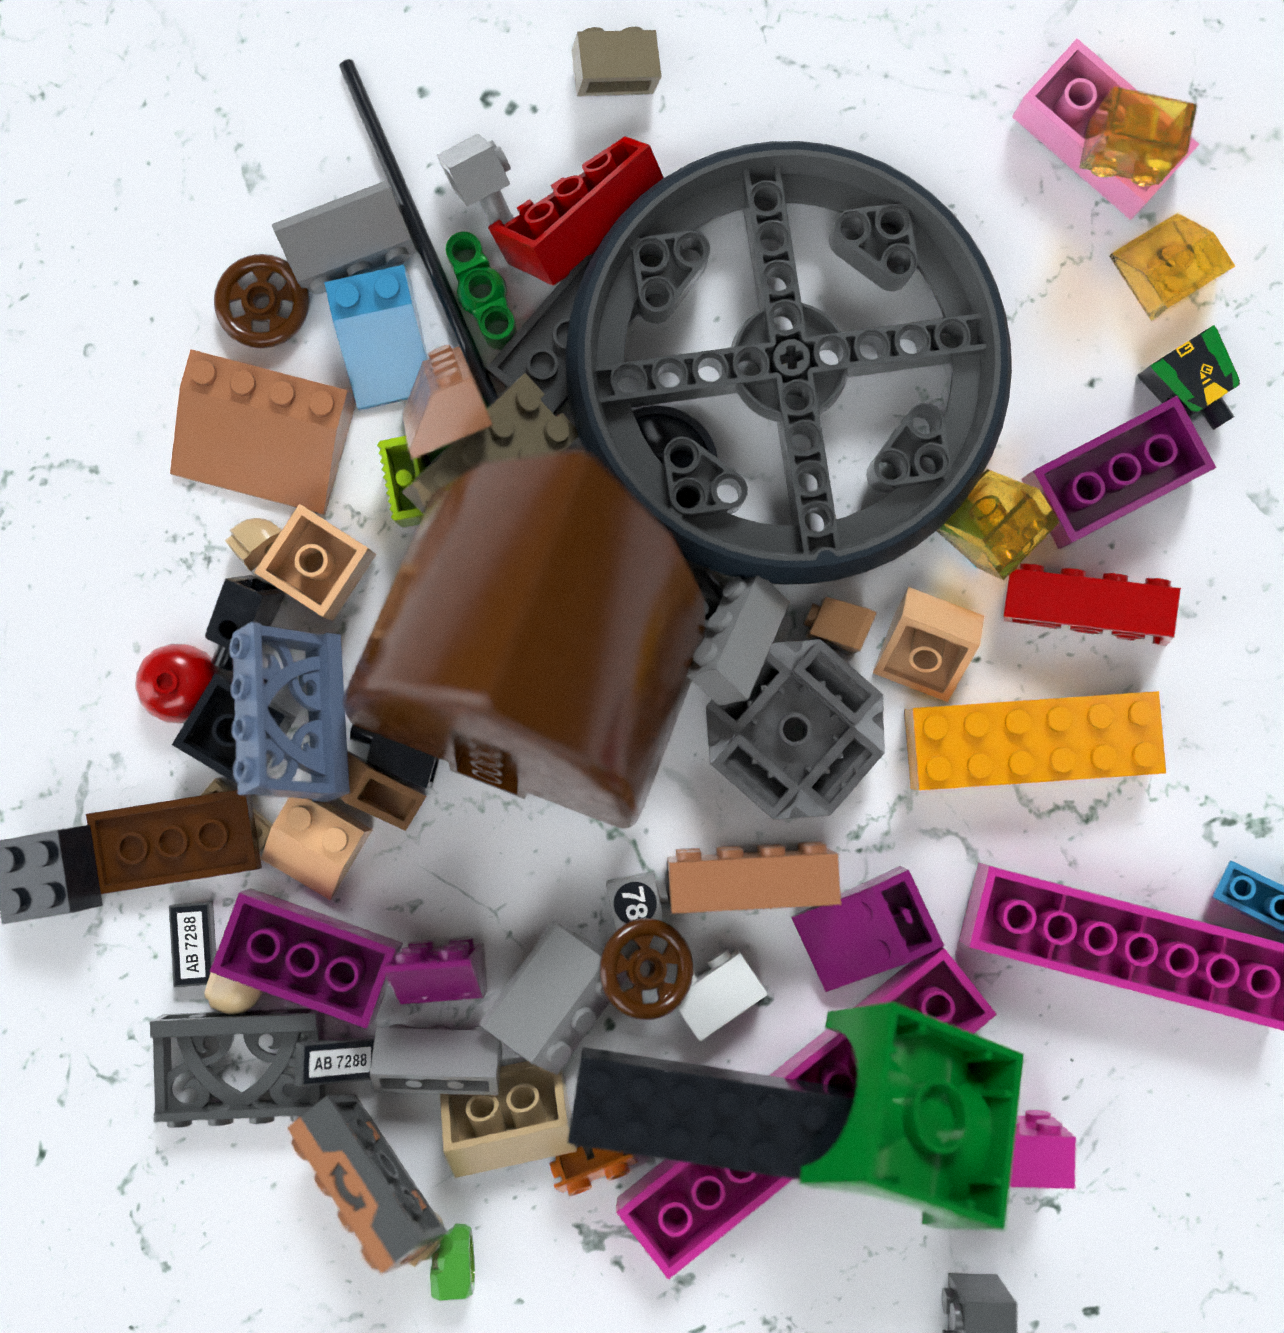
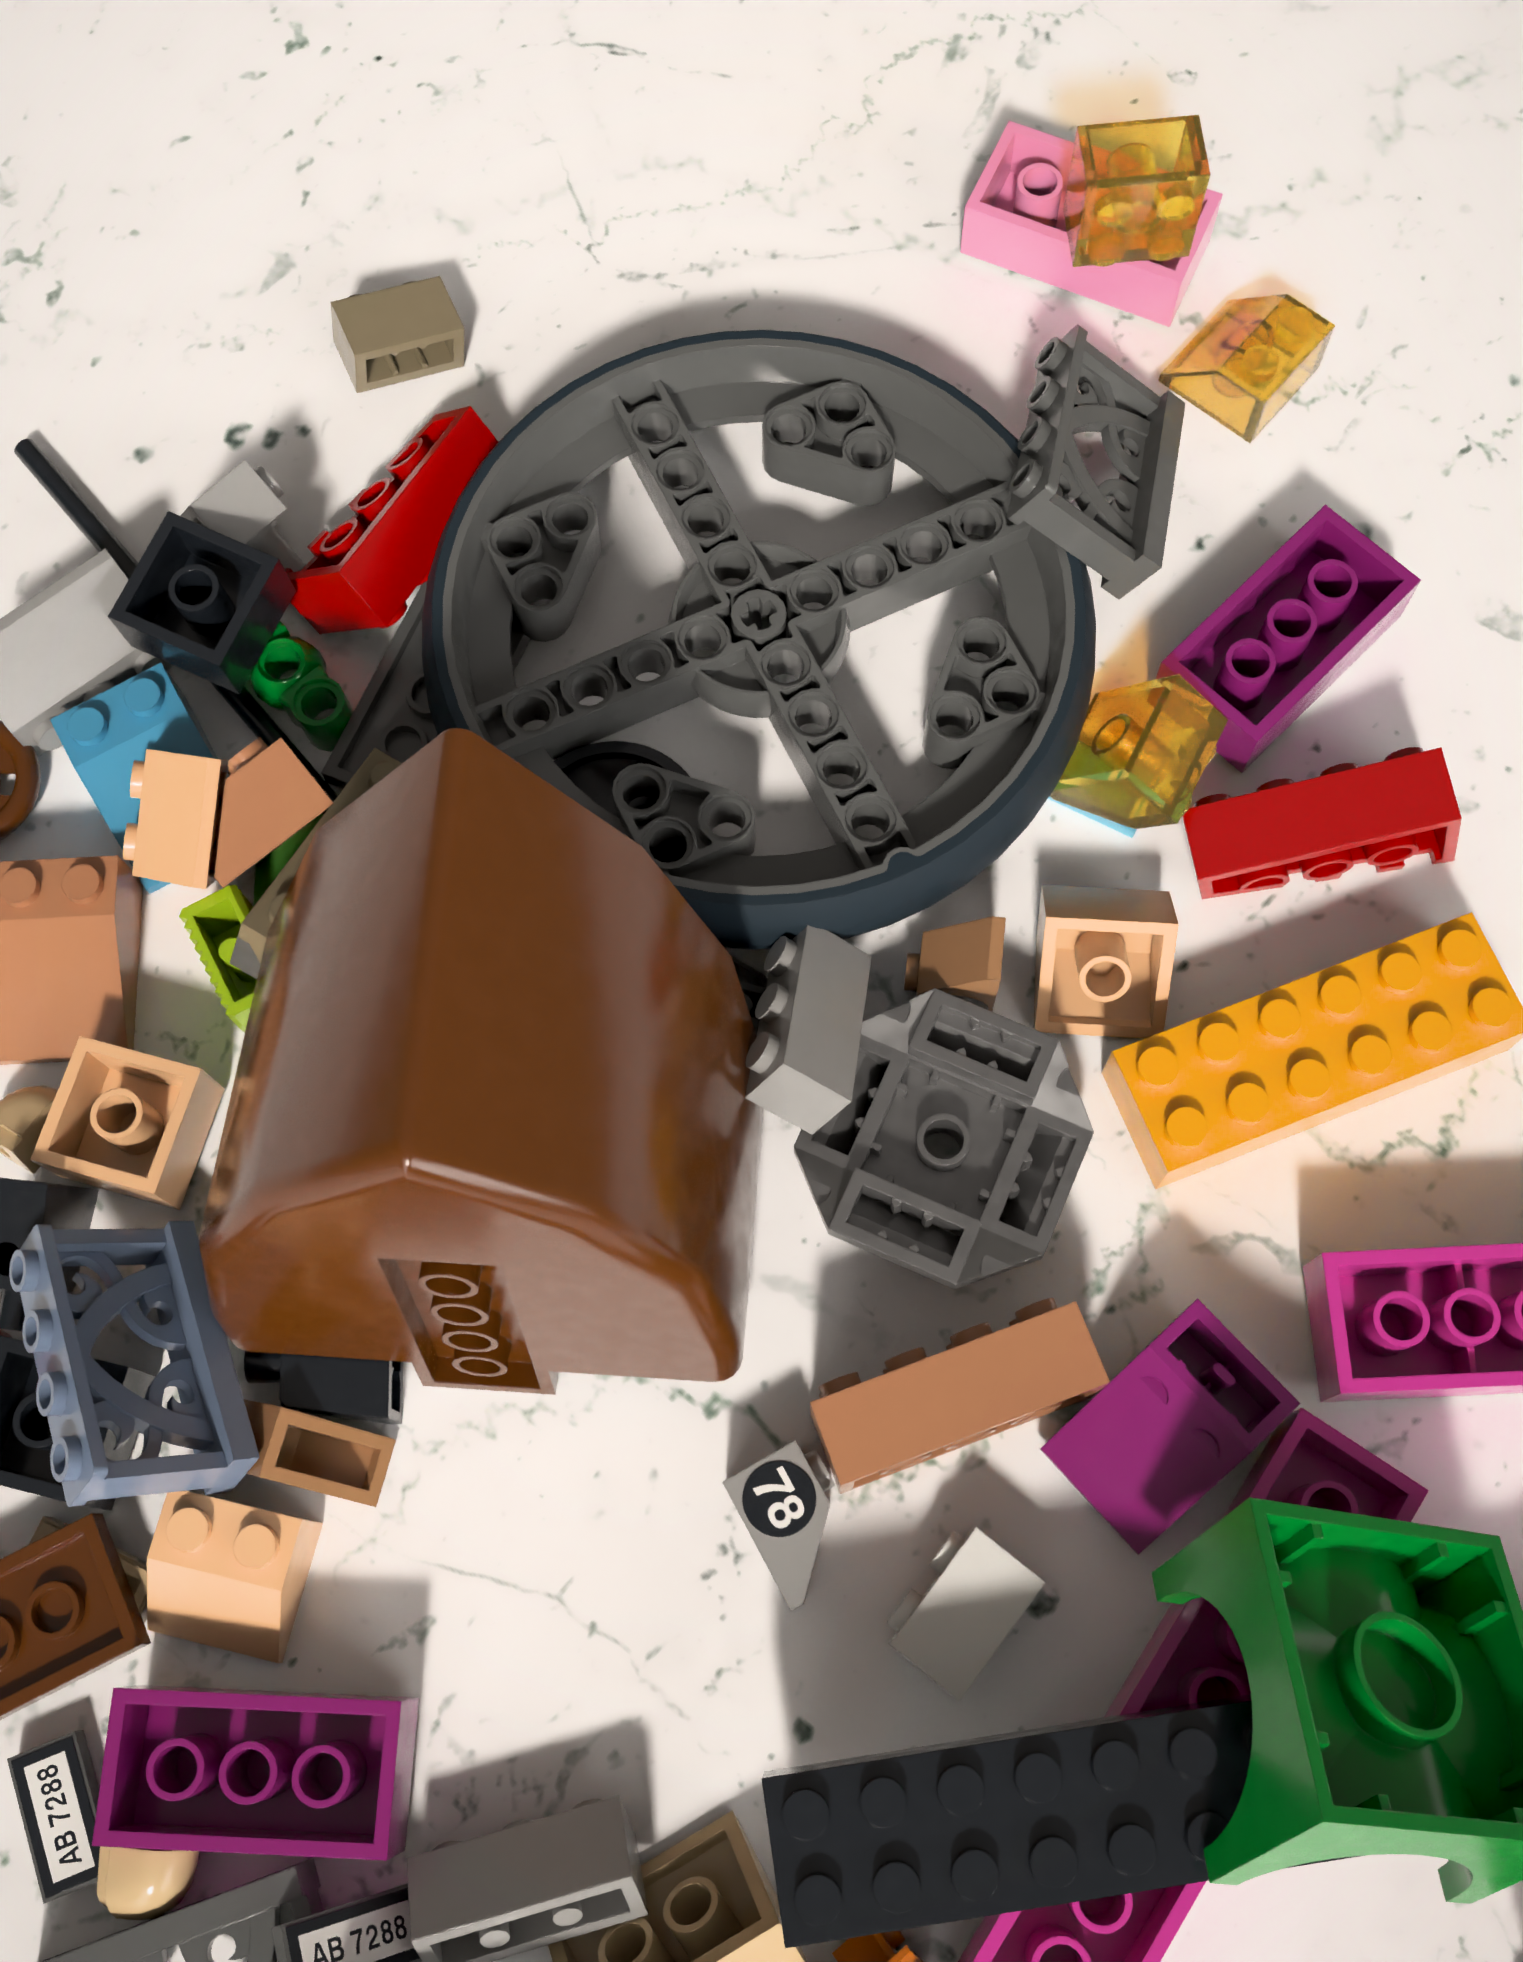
camera: 10 degrees left, 15 degrees down
(391, 377) = (176, 817): none -> light nougat slope
(438, 973) = (474, 1731): magenta slope -> none
(441, 237) = (203, 602): none -> black brick
(551, 999) = (693, 1706): light grey slope -> none
(613, 963) = (773, 1603): reddish brown plate -> none
(1085, 303) = (1114, 538): none -> dark grey fence
(1198, 375) = (1346, 473): torso -> none

